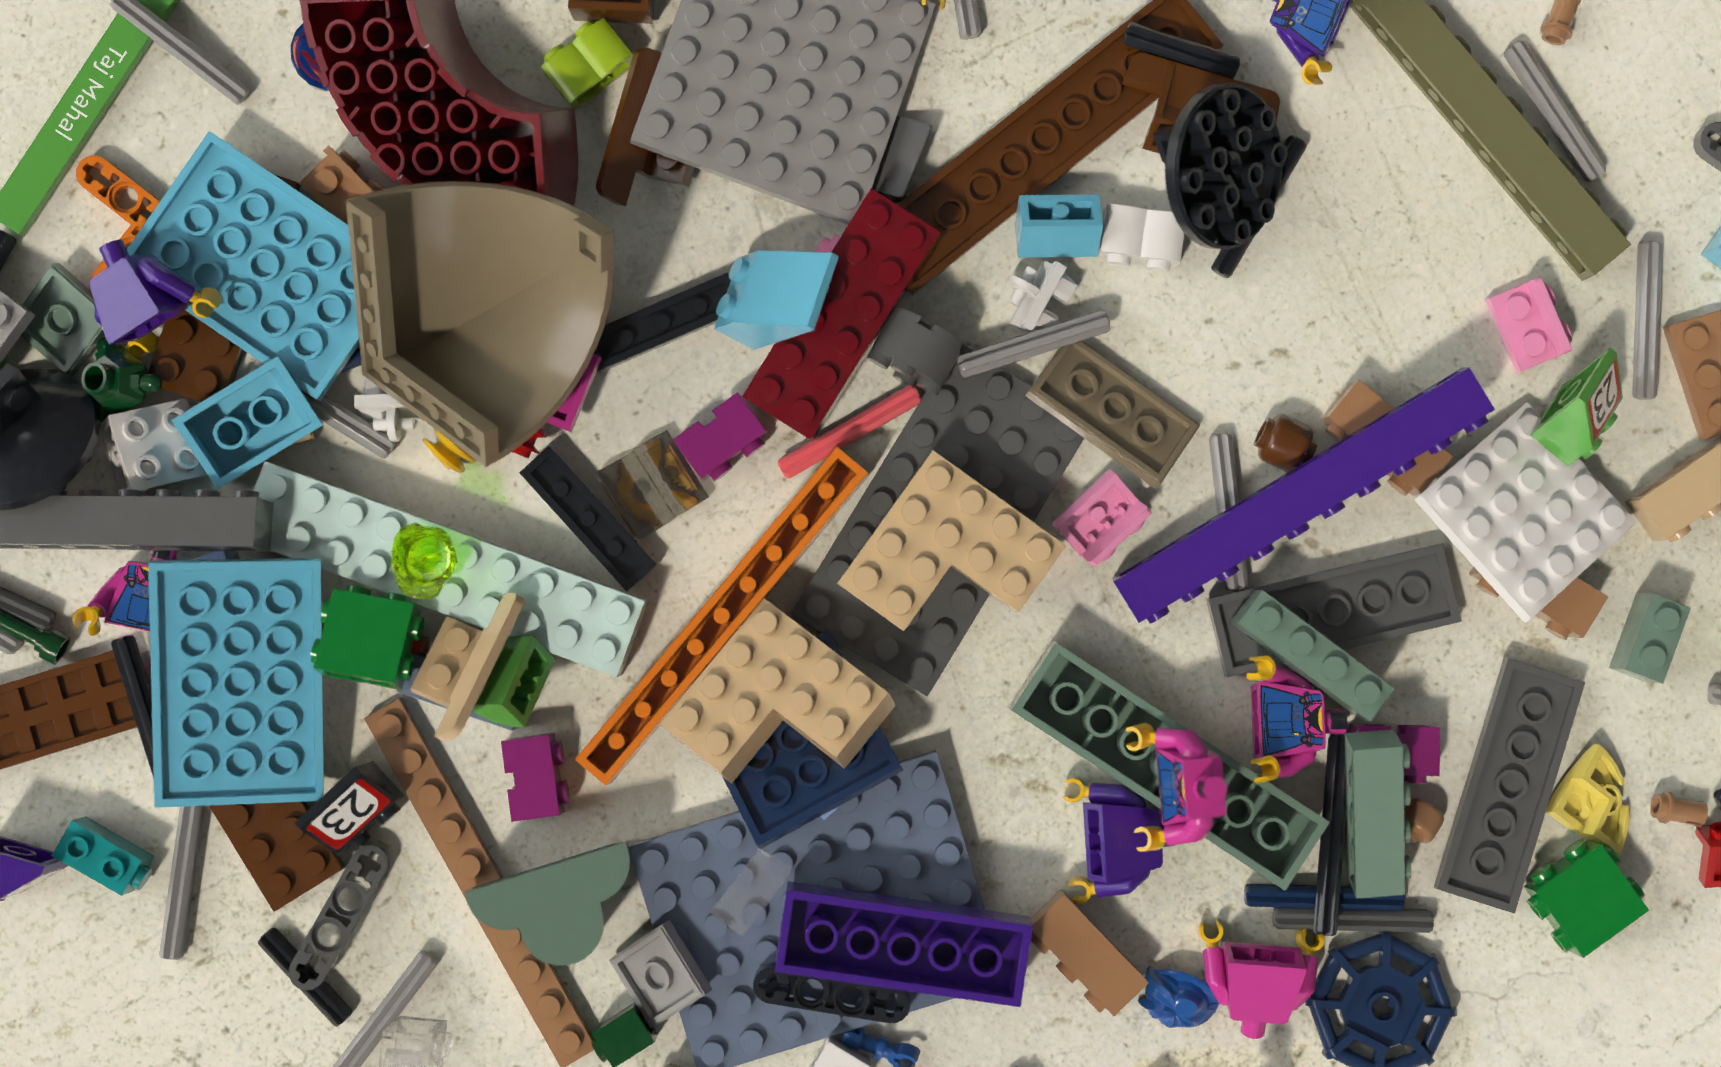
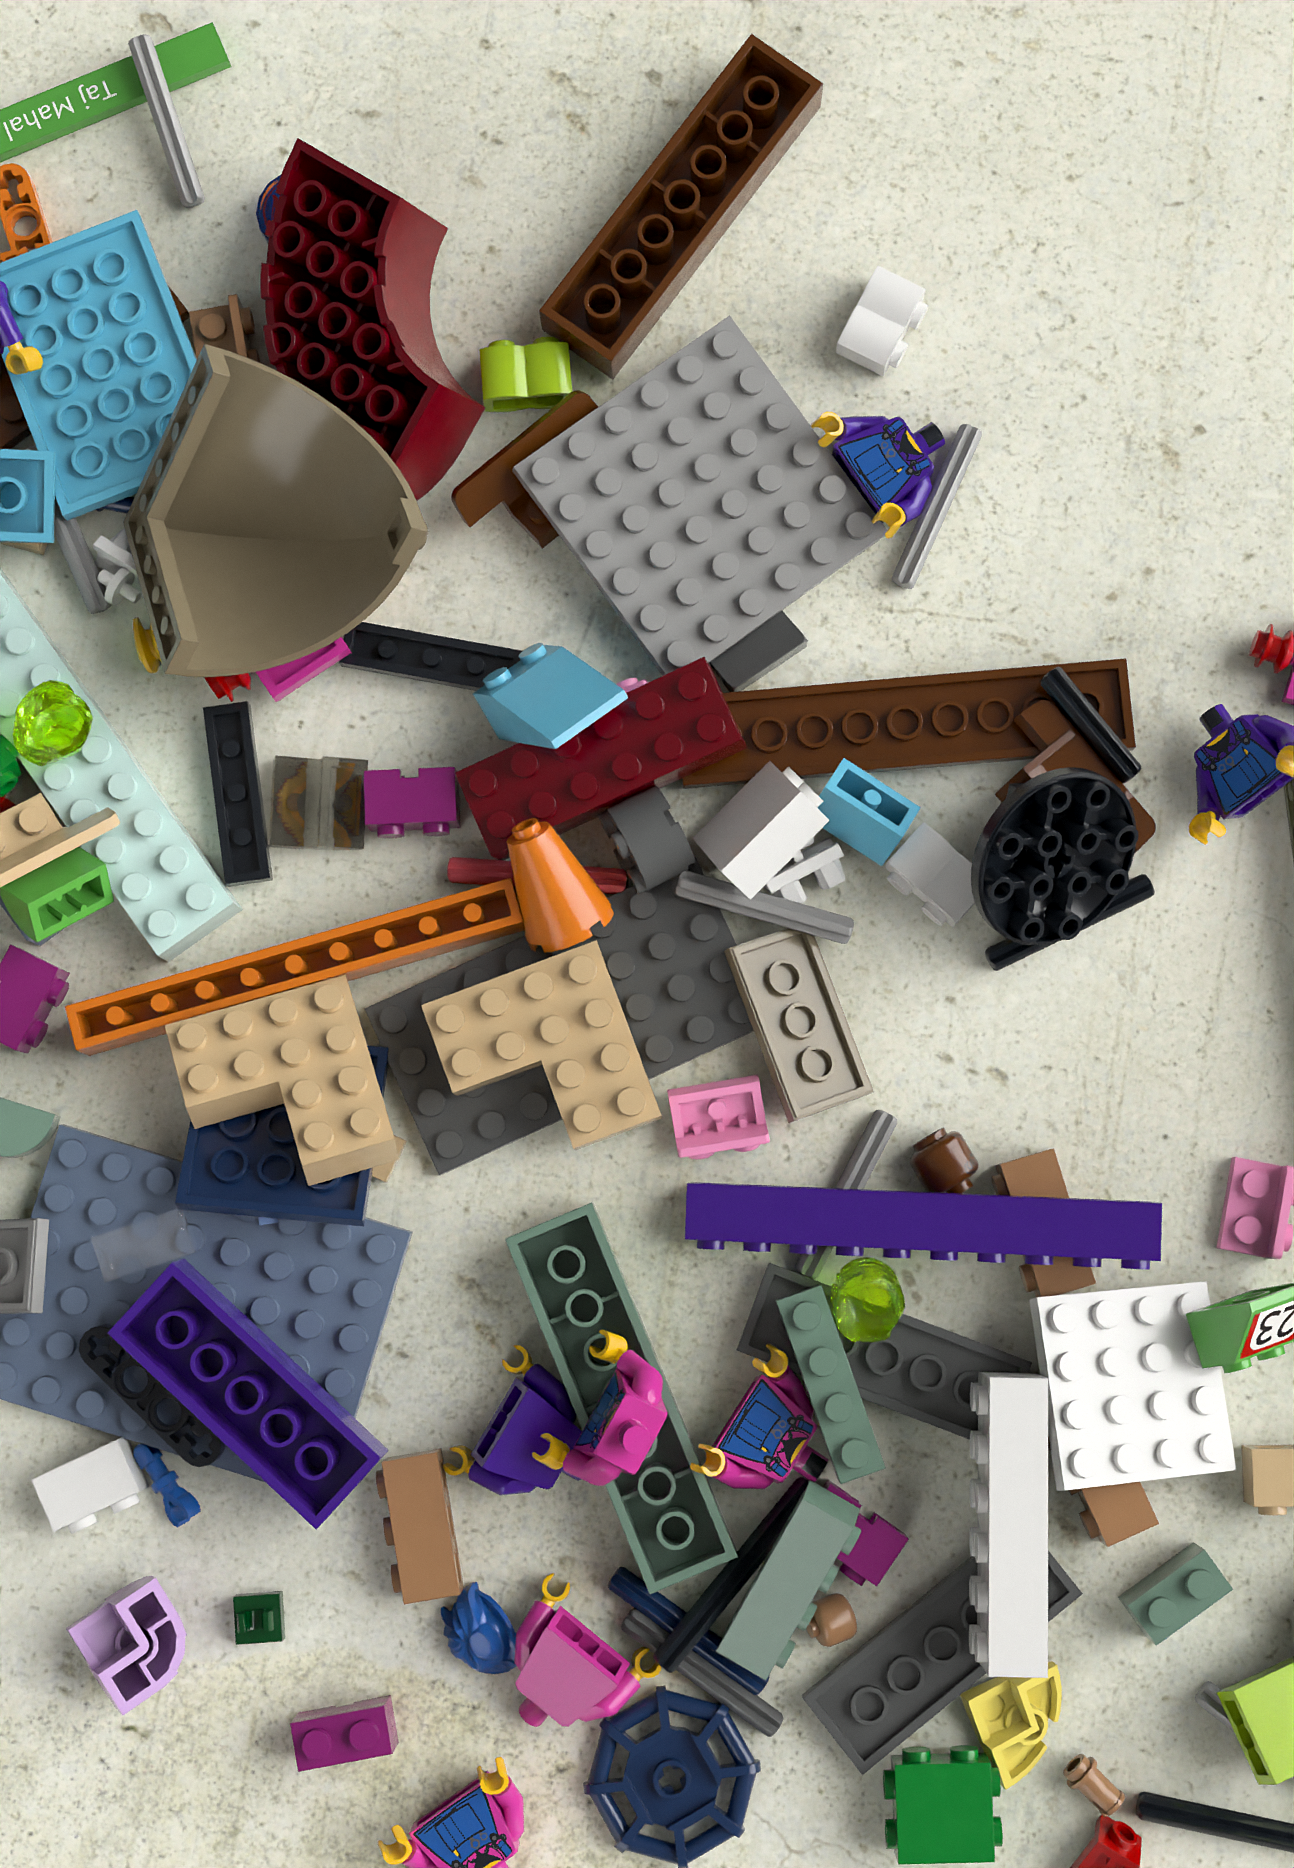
camera: 40 degrees right, 5 degrees down
(875, 434) = (553, 889): none -> orange cone
(995, 286) = (762, 828): none -> white brick
(1298, 578) = (866, 1300): none -> clear neon green hair
(1507, 667) = (1011, 1524): none -> white brick

